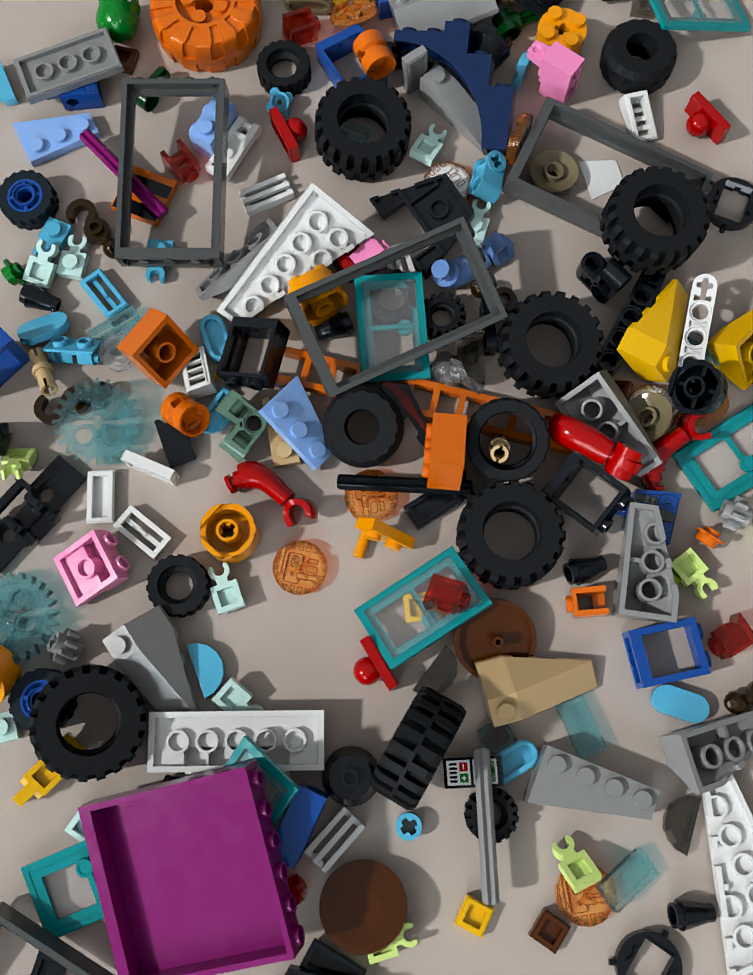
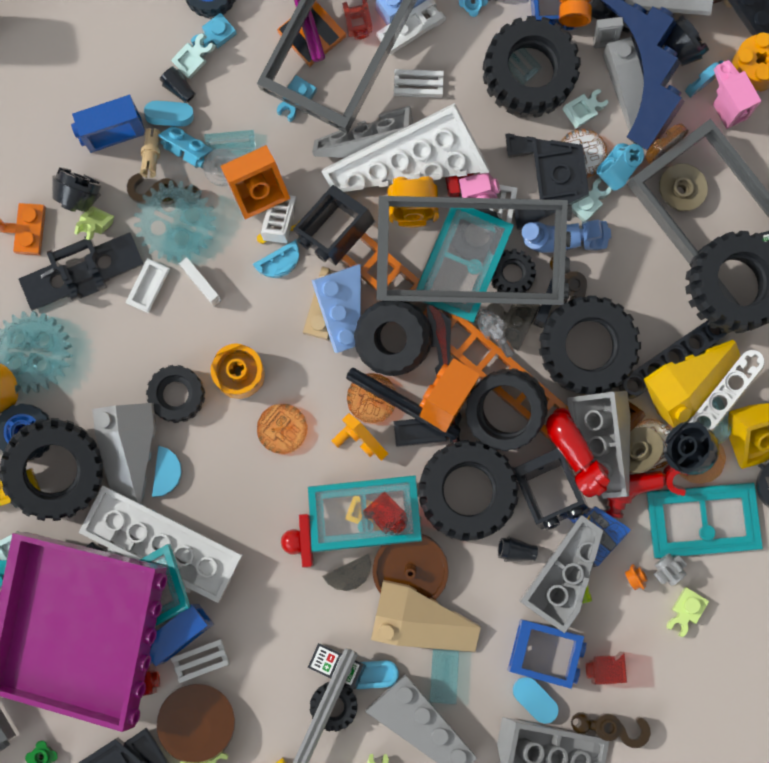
camera: 25 degrees right, 5 degrees up
(13, 272) = (166, 50): green plate -> none
(65, 646) = (61, 397): light grey gear -> none
(75, 261) = (222, 65): light aqua plate -> none
(92, 566) = (113, 342): bright pink plate -> none
(95, 228) = (254, 44): dark brown piece -> none
(115, 309) = (238, 127): medium azure tile -> none
(160, 546) = (176, 353): white tile -> none
(175, 444) = (231, 271): black slope -> none
(185, 414) = (250, 251): orange wheel -> none
(214, 336) = (309, 191): medium azure tile -> none
(227, 593) = (211, 420): light aqua plate -> none
(235, 697) = (176, 508): light aqua plate -> none
(238, 411) = (294, 270): sand green piece -> none
(260, 477) = (287, 336): red piece -> none
(288, 132) = (466, 36): red tile -> none
(335, 326) = (418, 235): black cone -> none
(348, 776) = (237, 618): black cone -> none
(407, 835) = (259, 688): medium azure bush -> none
(417, 748) = (299, 623): black tyre -> none
(497, 738) = (370, 649): clear smoke tile -> none
(502, 453) = (497, 413): tan pin -> none
(511, 22) = (721, 26): dark green axle -> none
(598, 602) = (514, 583): orange window -> none
(600, 176) = (726, 211): white sticker -> none
(607, 278) = (671, 311): black piece -> none
(691, 569) = (605, 596): yellowish green plate -> none

